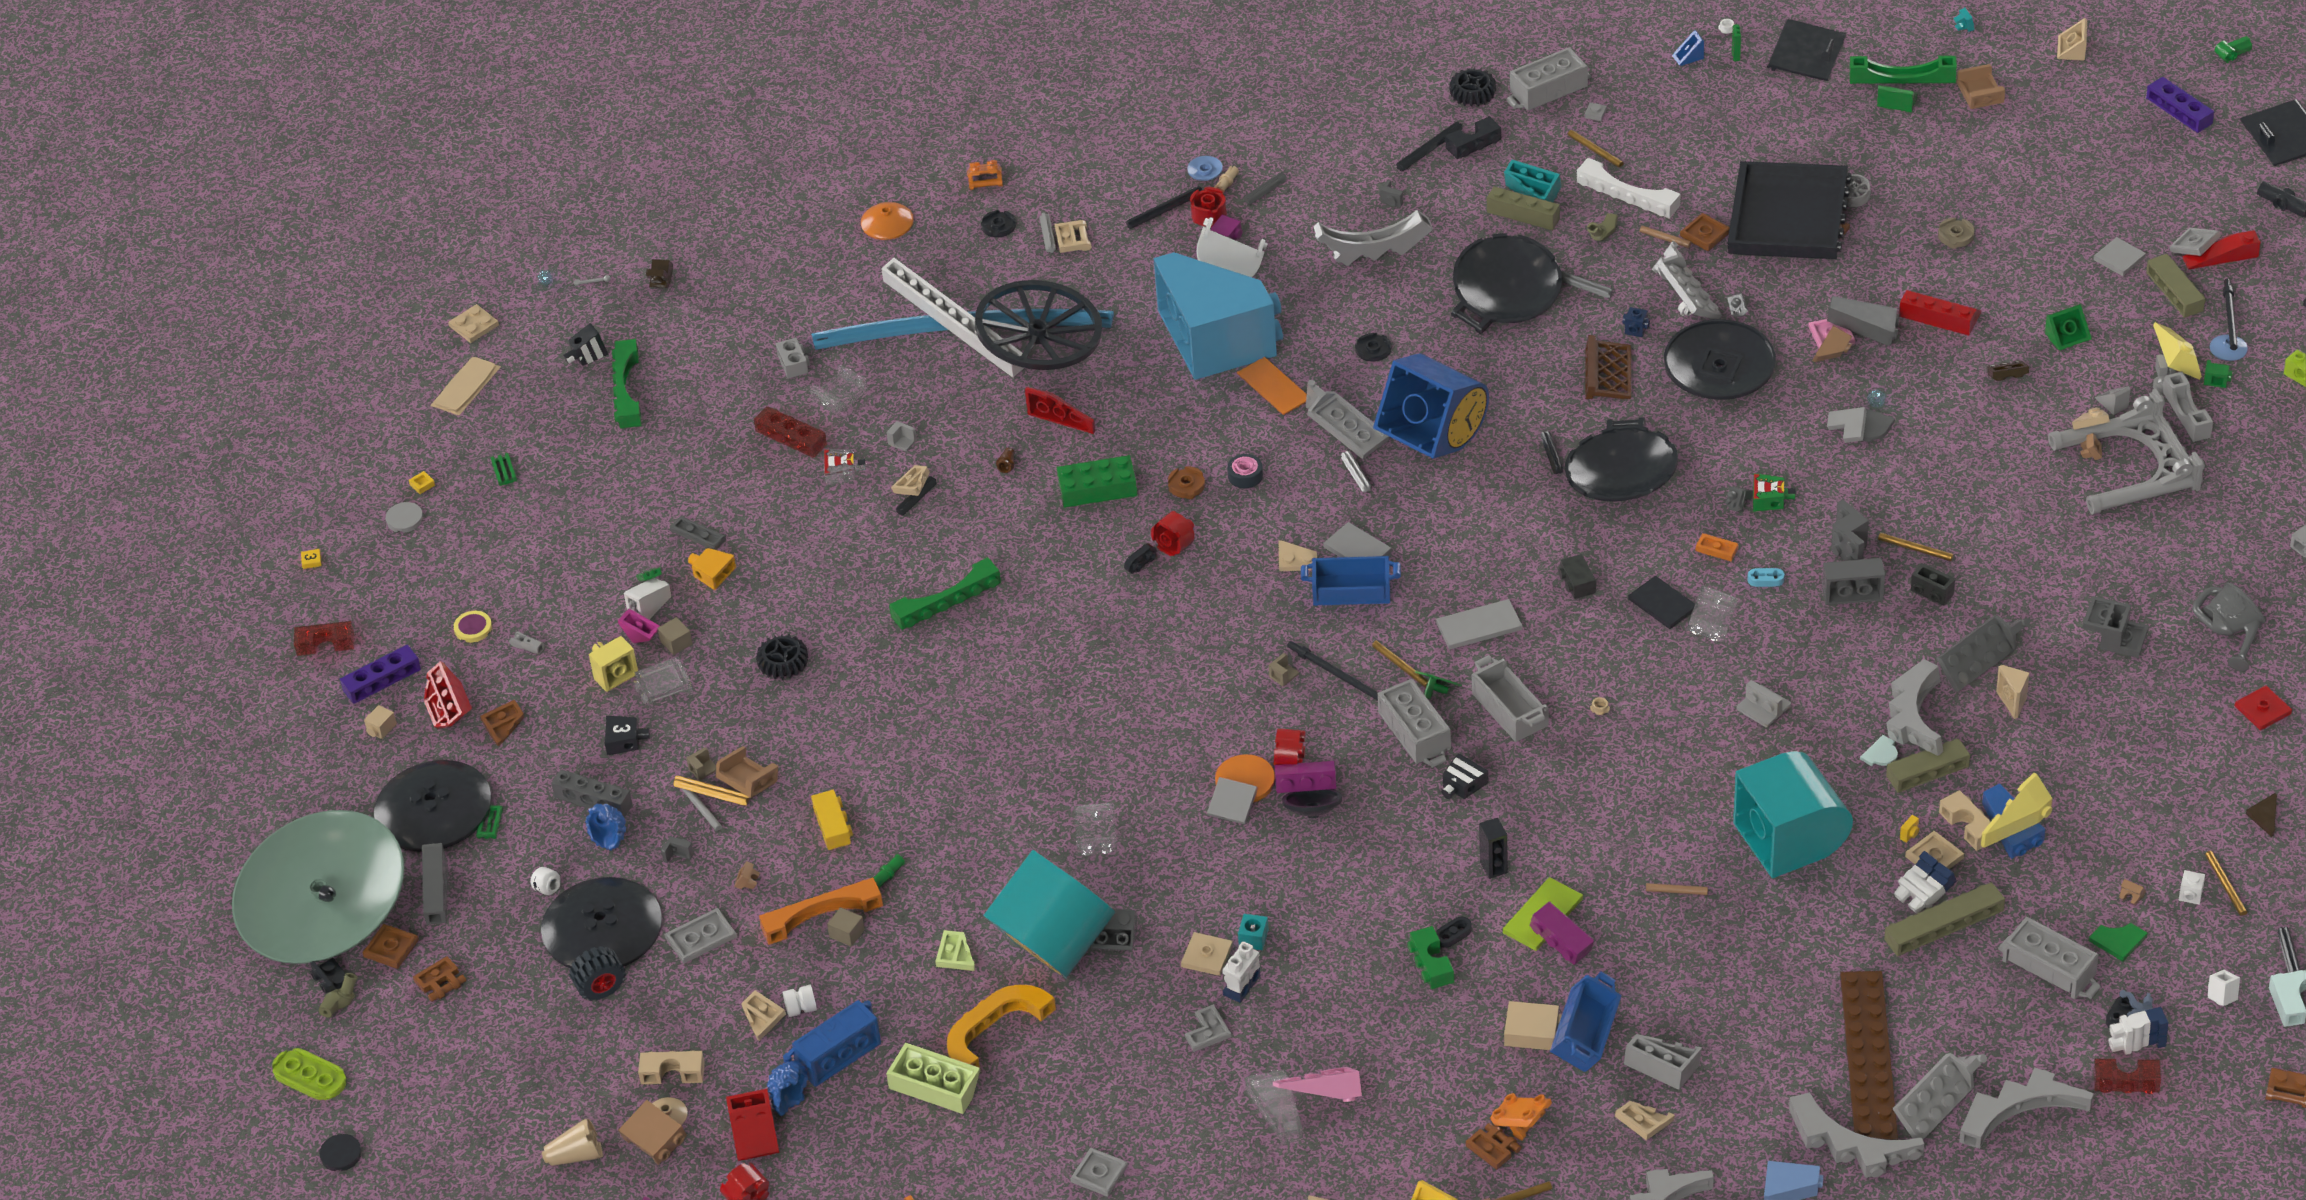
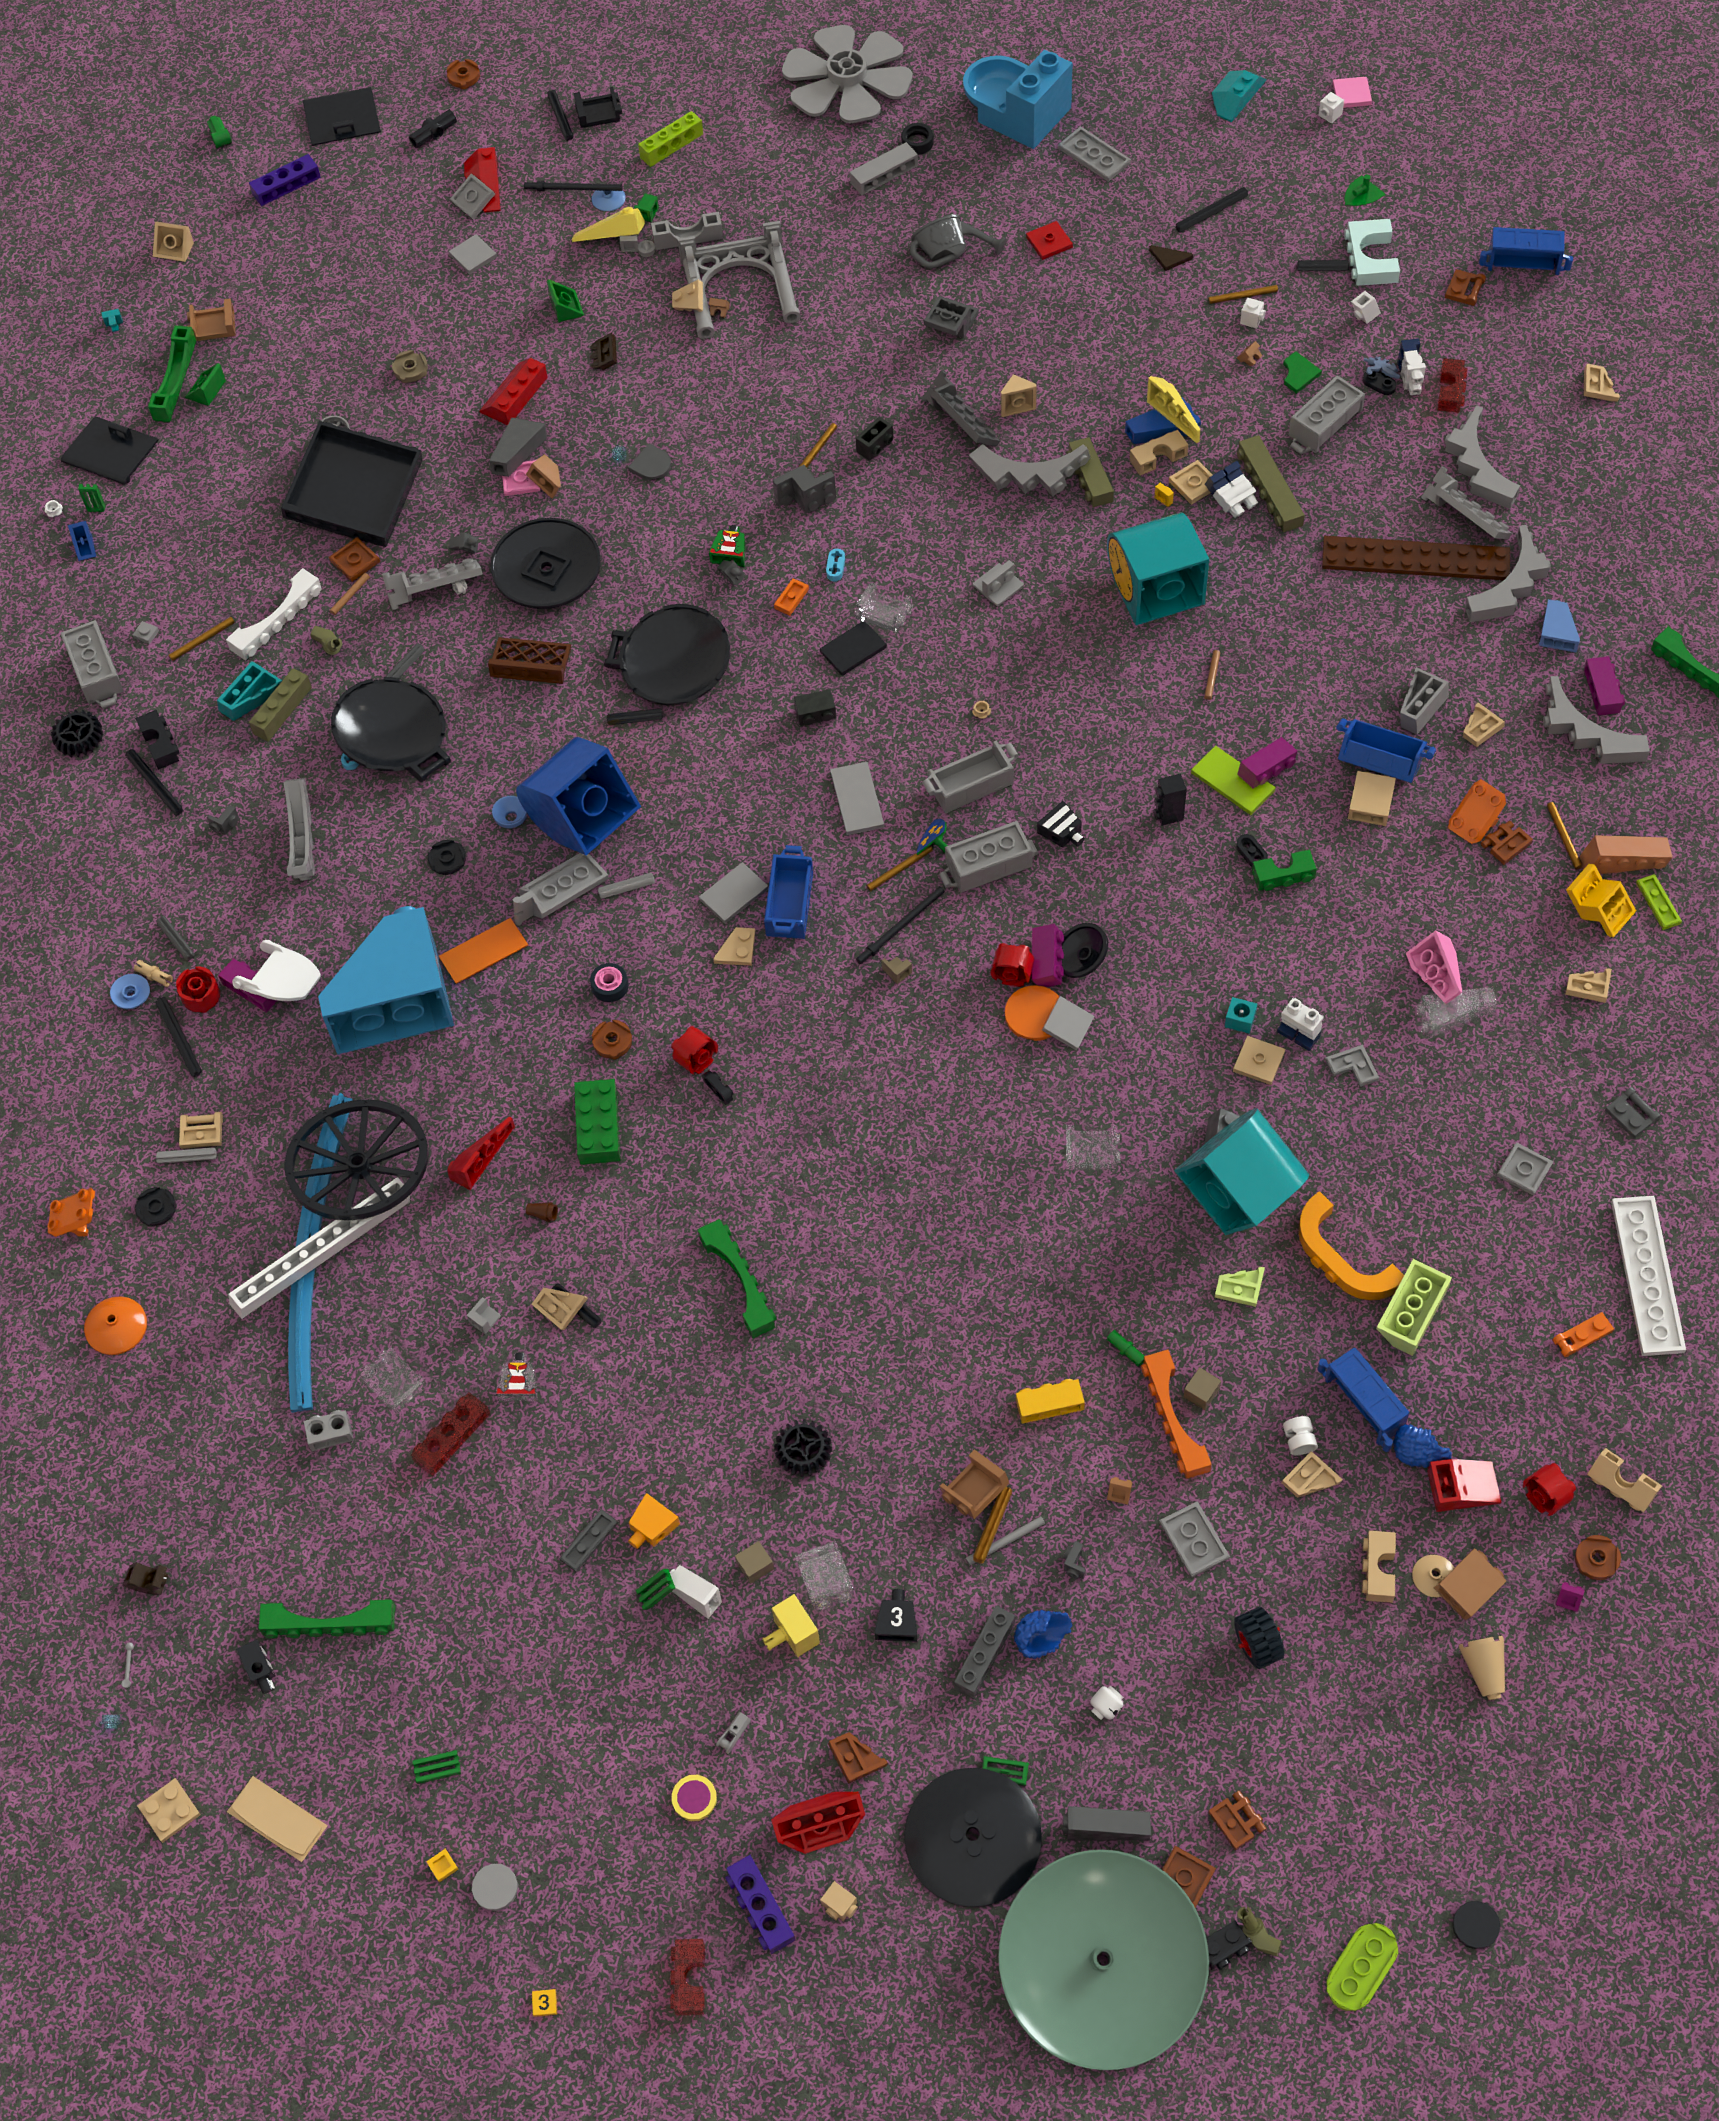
camera: 85 degrees left, 15 degrees up
(327, 893) = (1125, 1943): black hinge -> none
(629, 923) = (1164, 1675): black dish -> none
(637, 626) = (740, 1598): dark pink slope -> none
(700, 764) = (952, 1535): dark tan panel -> none
(1636, 322) = (473, 626): dark blue brick -> none
(1851, 421) = (651, 471): light grey tile -> none
(1853, 581) = (863, 494): dark grey brick -> none
(1881, 752) = (1068, 504): light aqua piece -> none
(2115, 399) = (661, 281): light grey slope -> none
(2175, 285) = (526, 218): olive brick -> none

